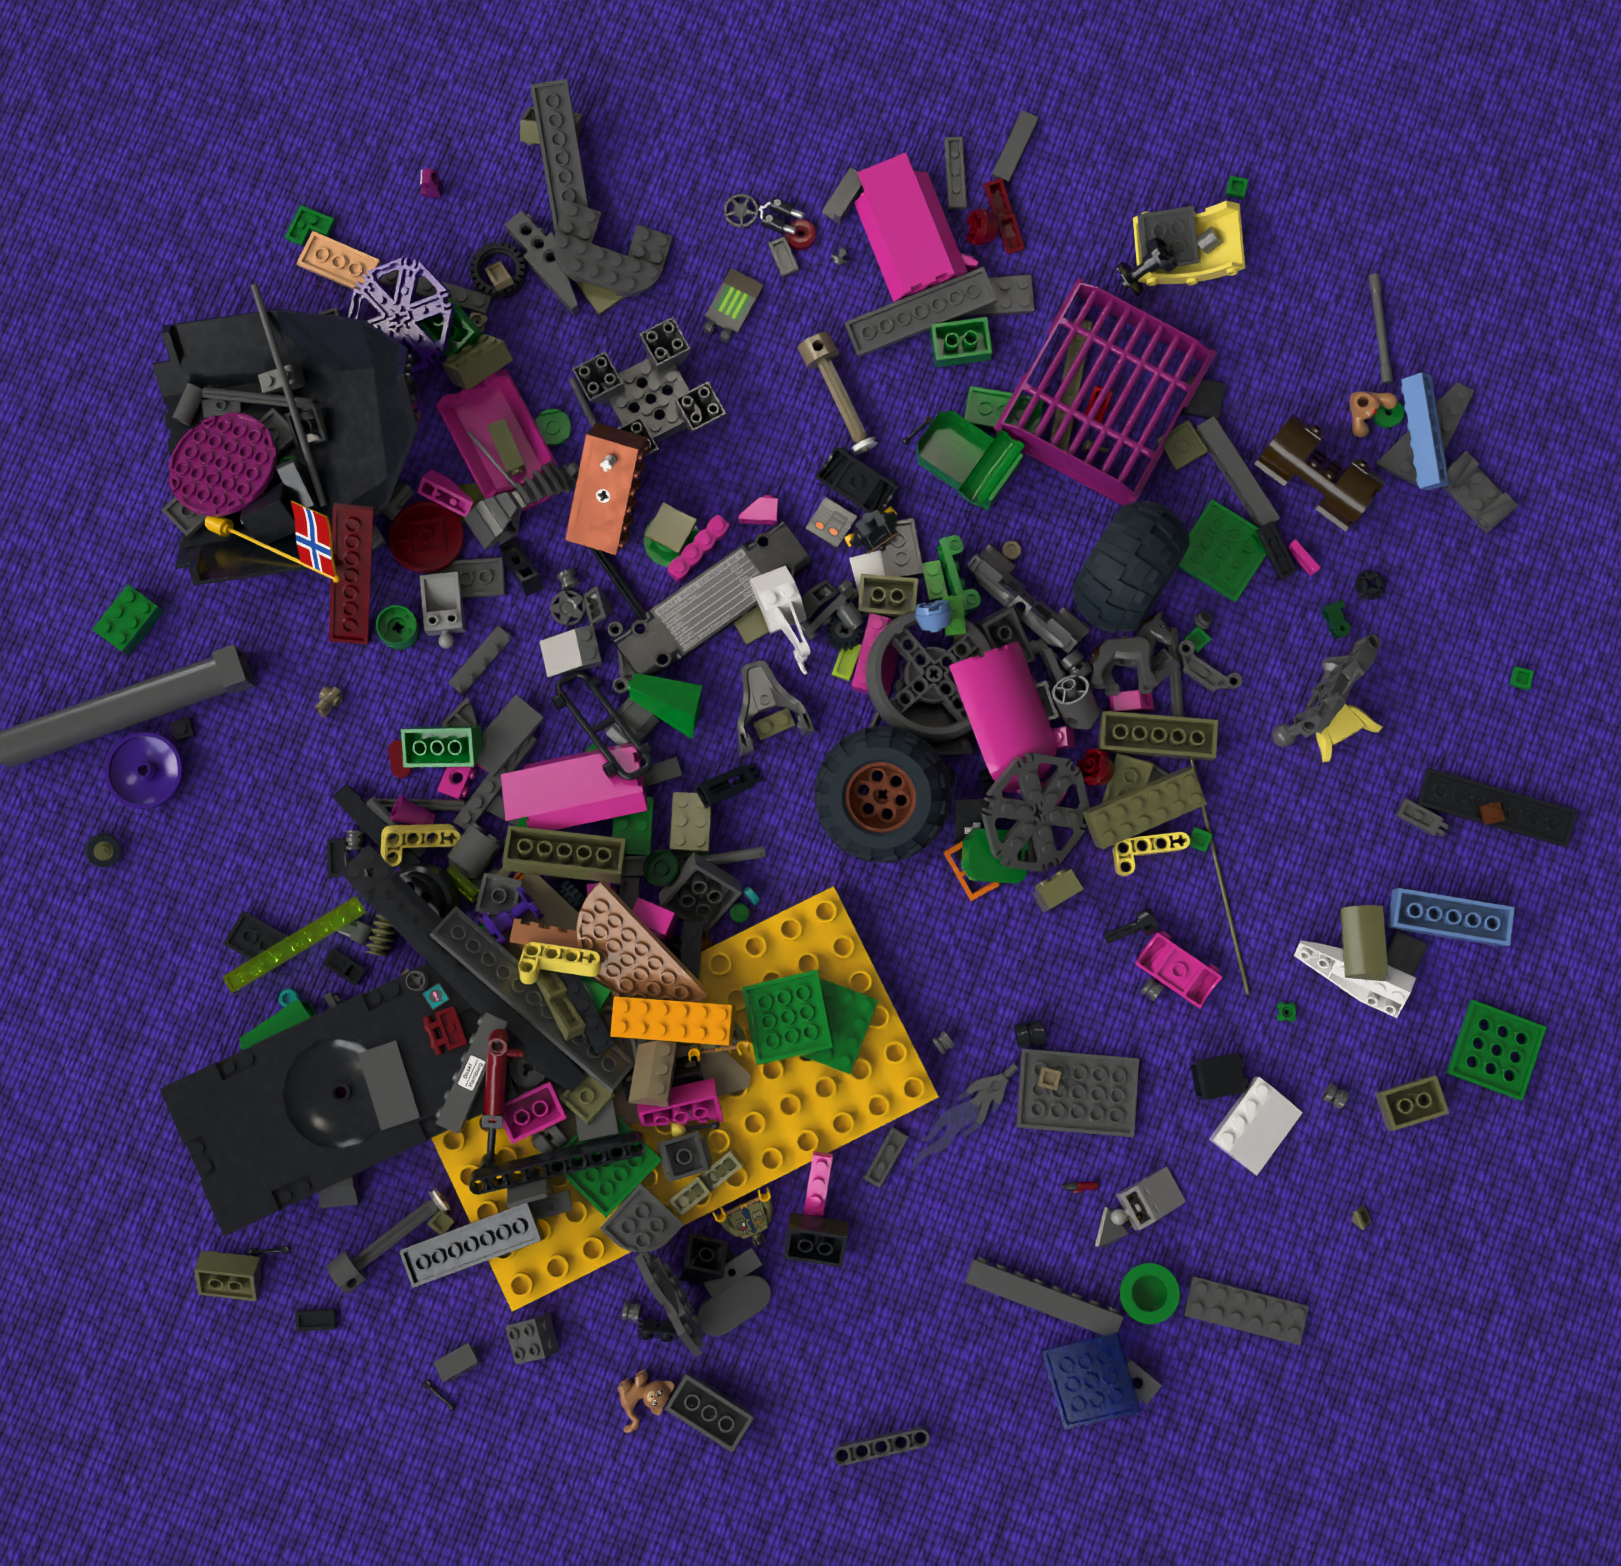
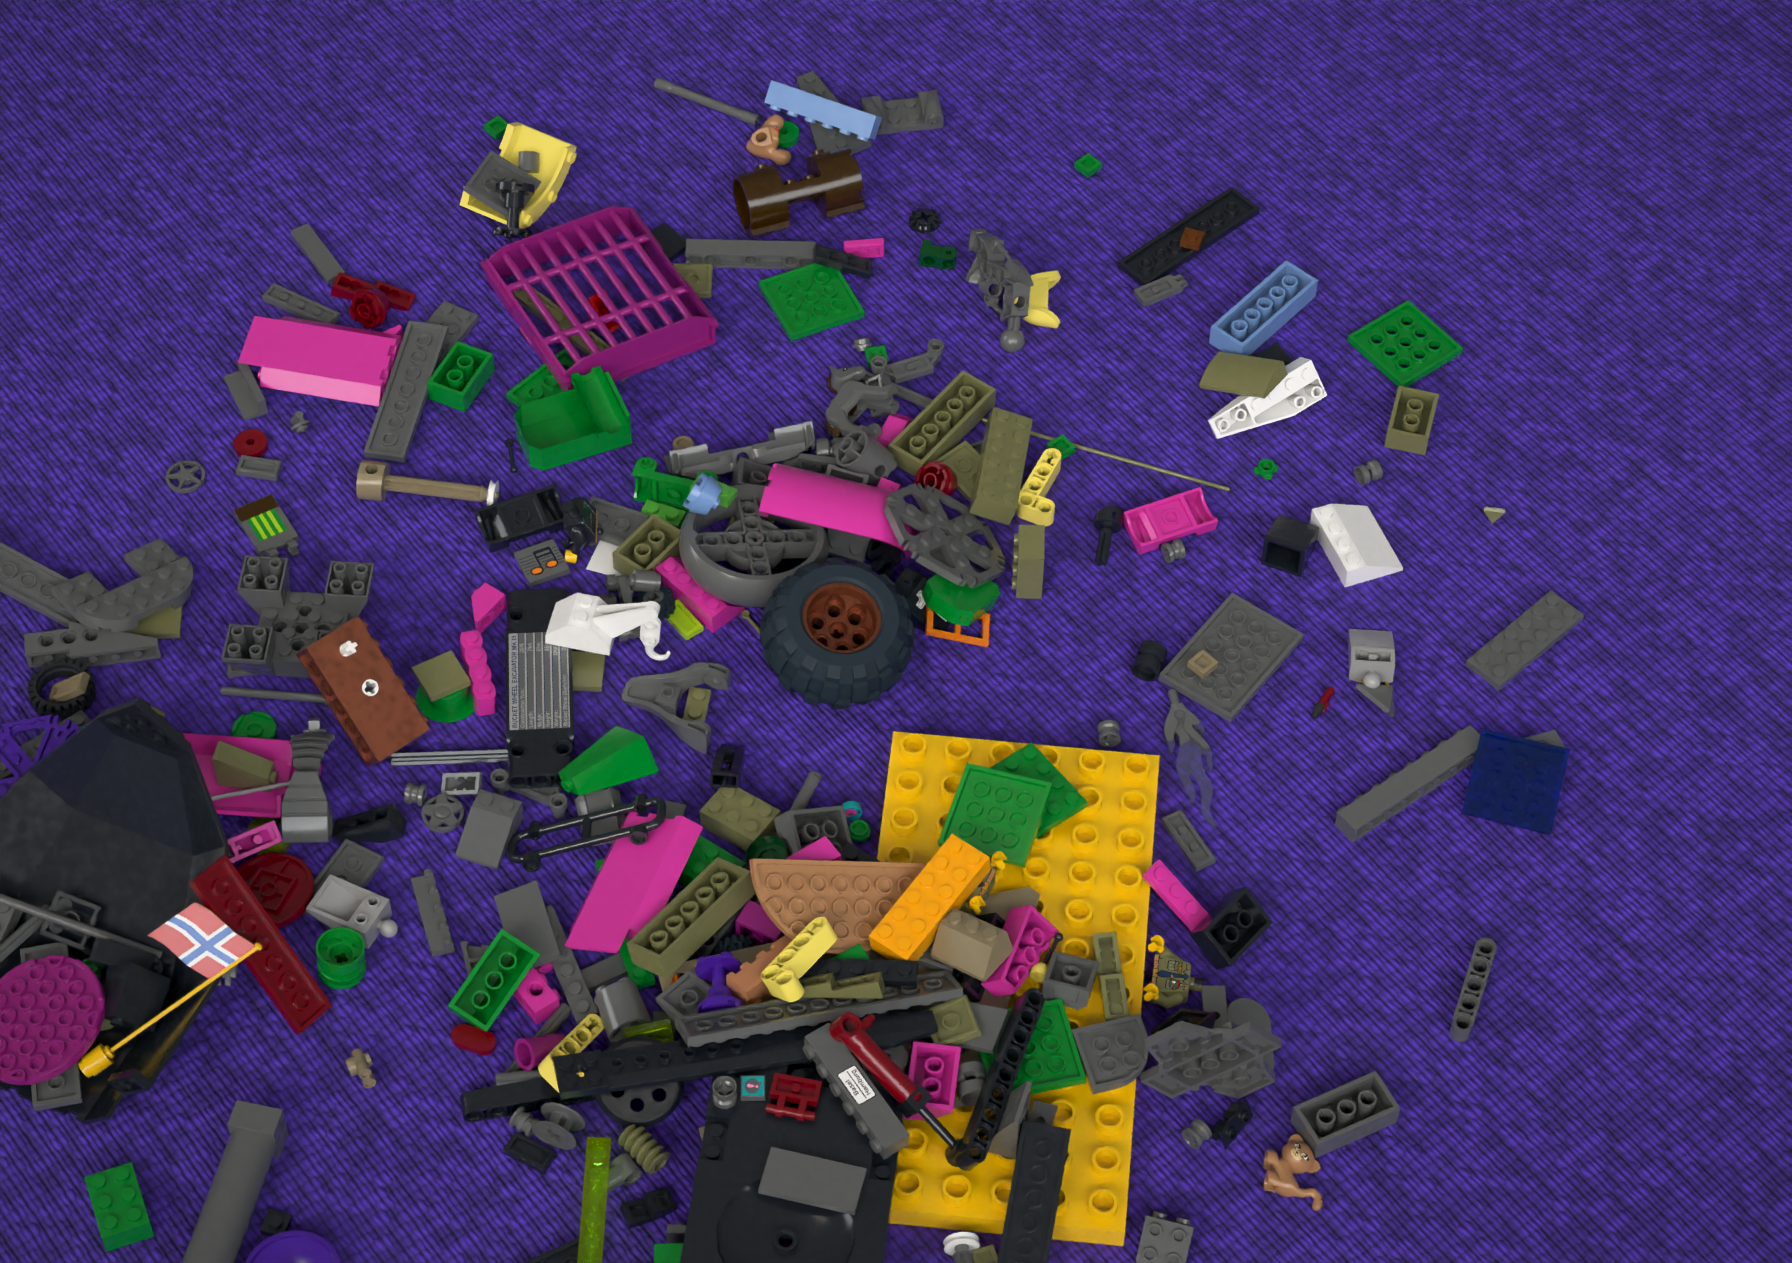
camera: 60 degrees left, 30 degrees down
(775, 223) = (218, 448): black piece -> none
(1130, 566) = (777, 340): black wheel -> none
(1149, 1293) = (1460, 694): green hose -> none

